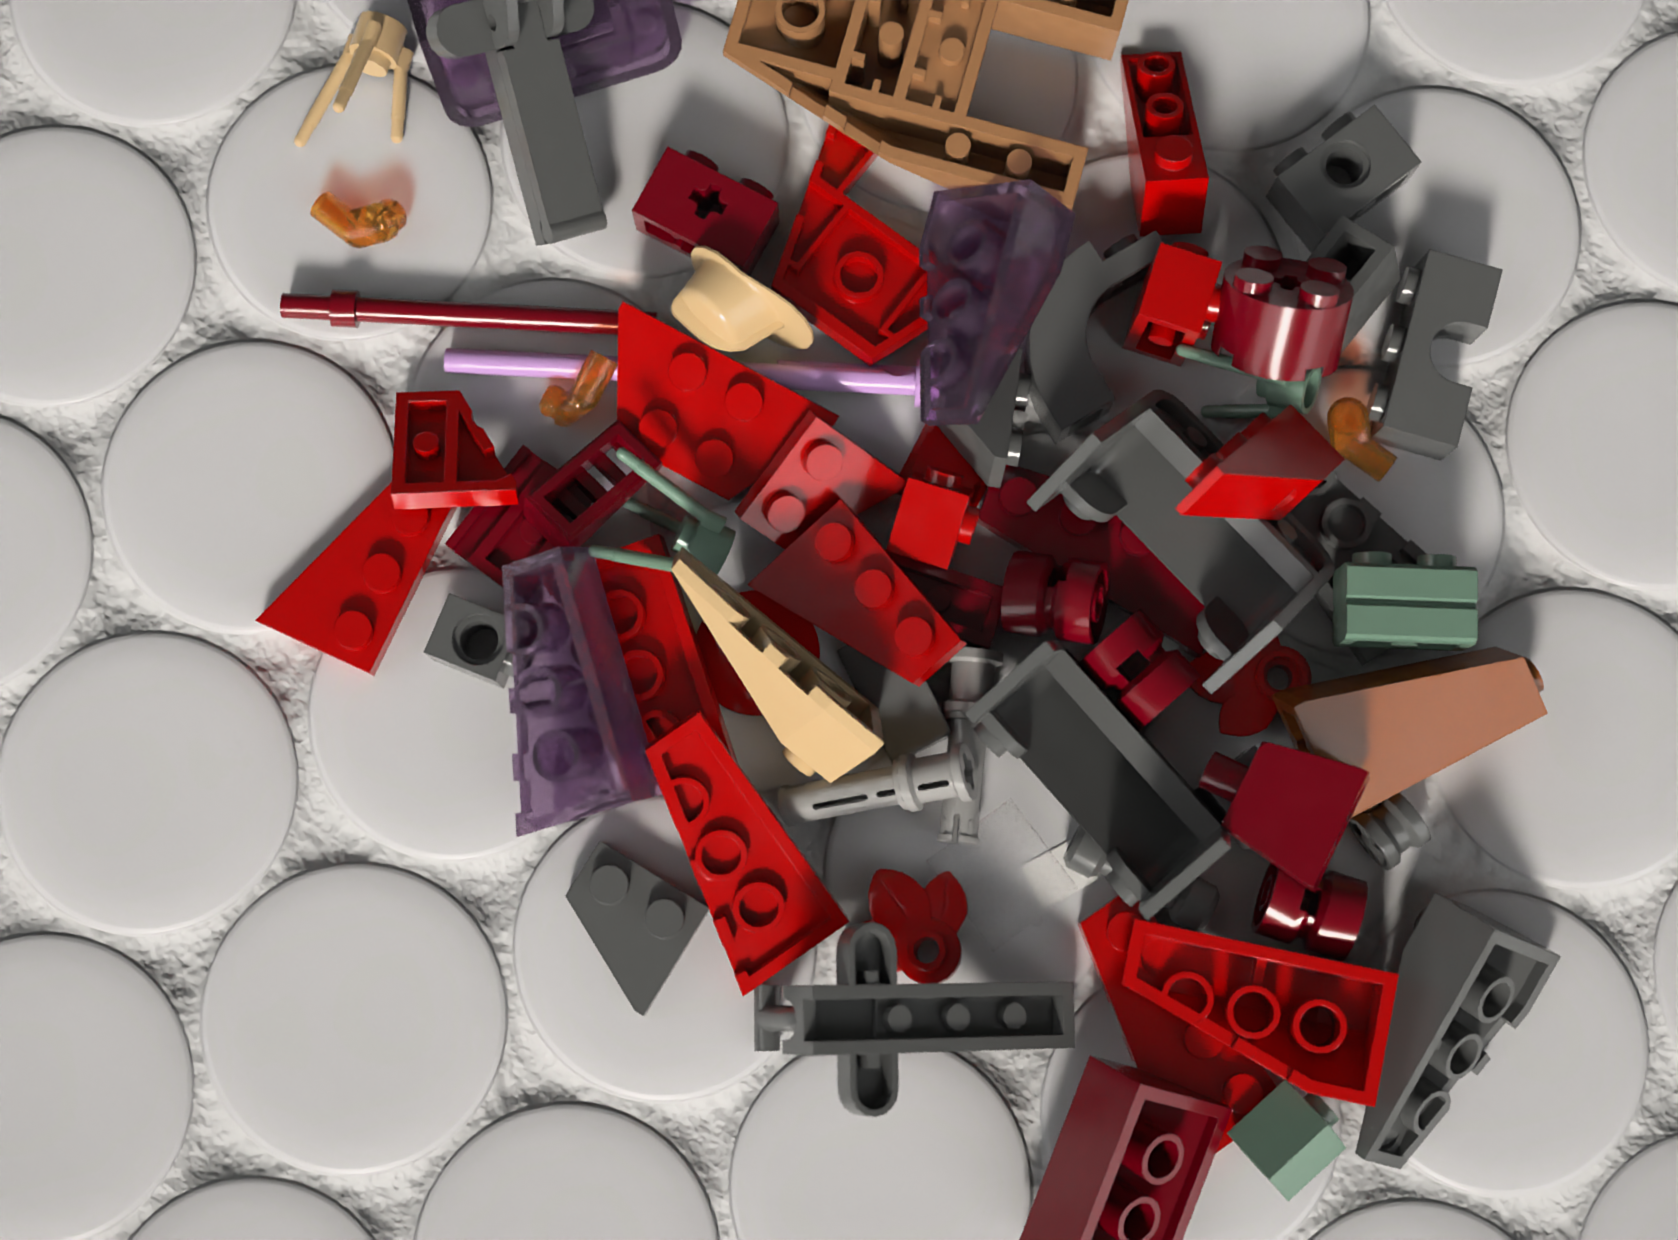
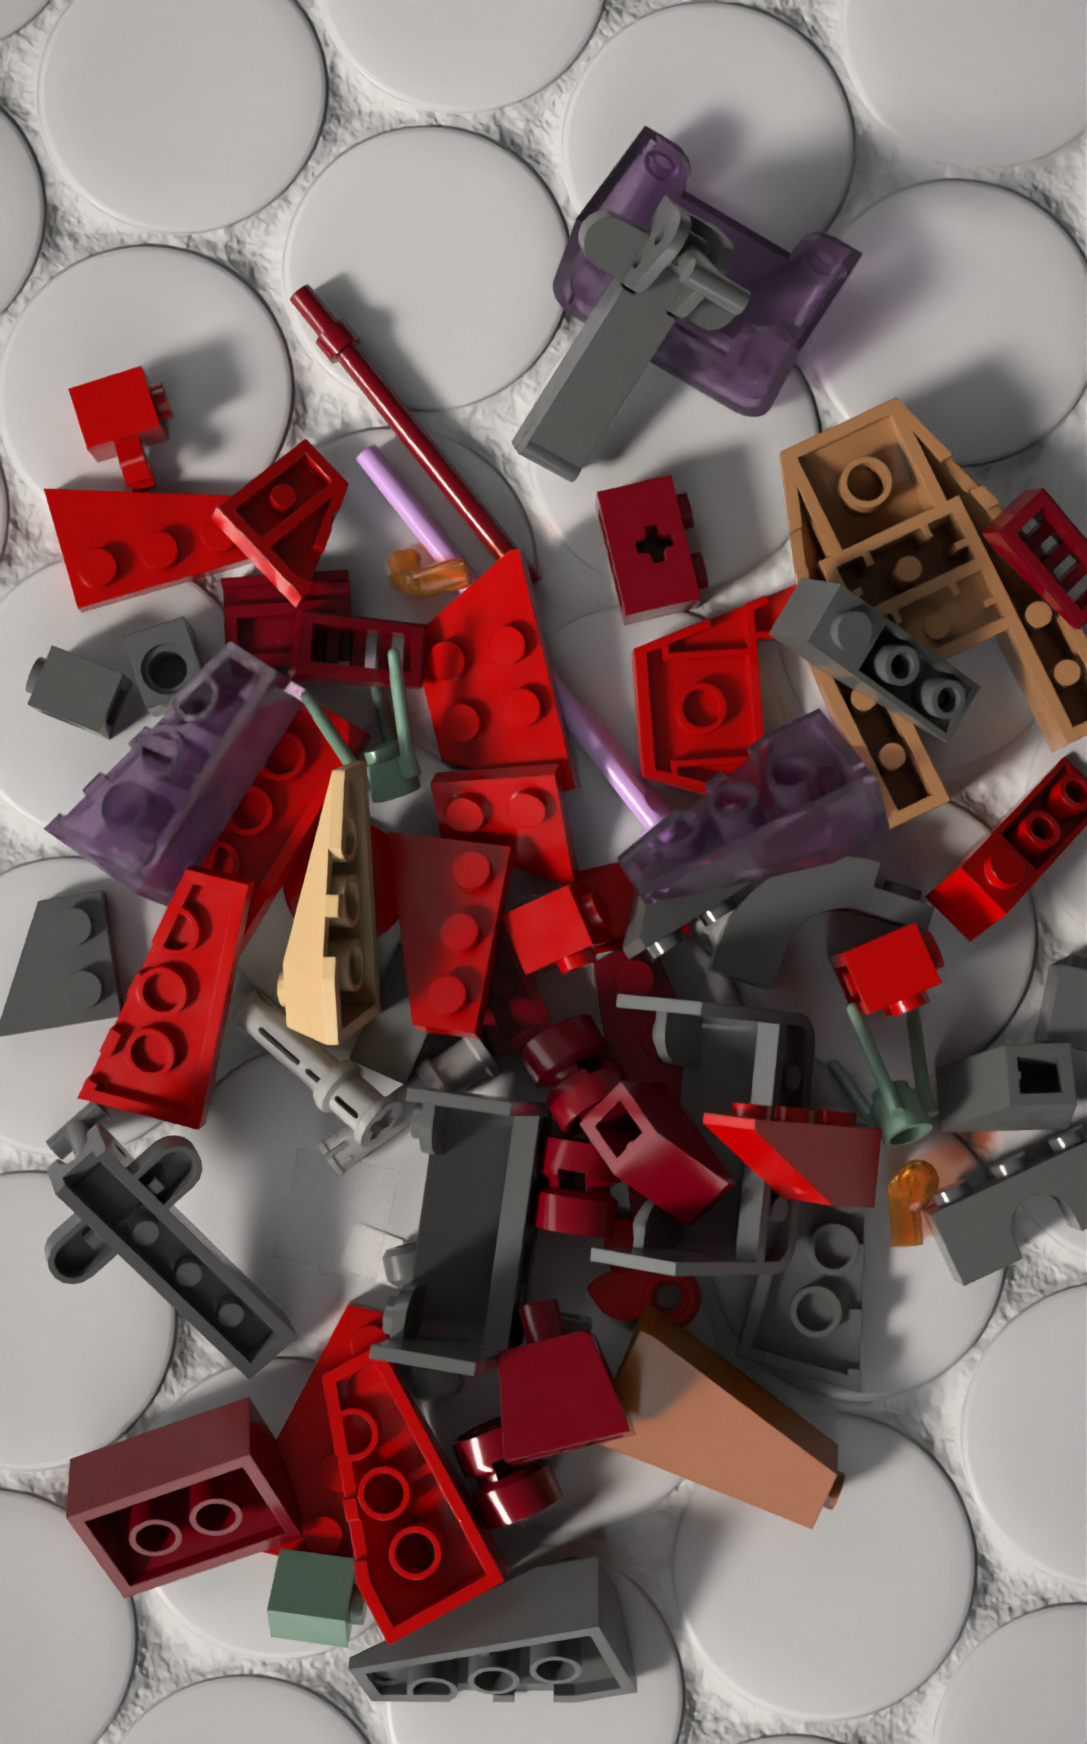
camera: 50 degrees right, 5 degrees up
(257, 515) = (120, 419): none -> red brick
(362, 225) = (411, 295): clear orange arm -> none
(370, 50) = (557, 179): tan plant -> none
(432, 726) = (78, 691): none -> dark grey brick
(734, 309) = (583, 635): tan piece -> none
(920, 915) = (244, 1170): red plate -> none
(932, 107) = (873, 656): none -> dark grey slope
(1167, 579) = (657, 1149): none -> dark red slope
(1282, 314) = (943, 1064): dark red brick -> none
(1390, 830) = (620, 1482): dark grey wheel -> none
(1405, 603) = (801, 1349): sand green brick -> none

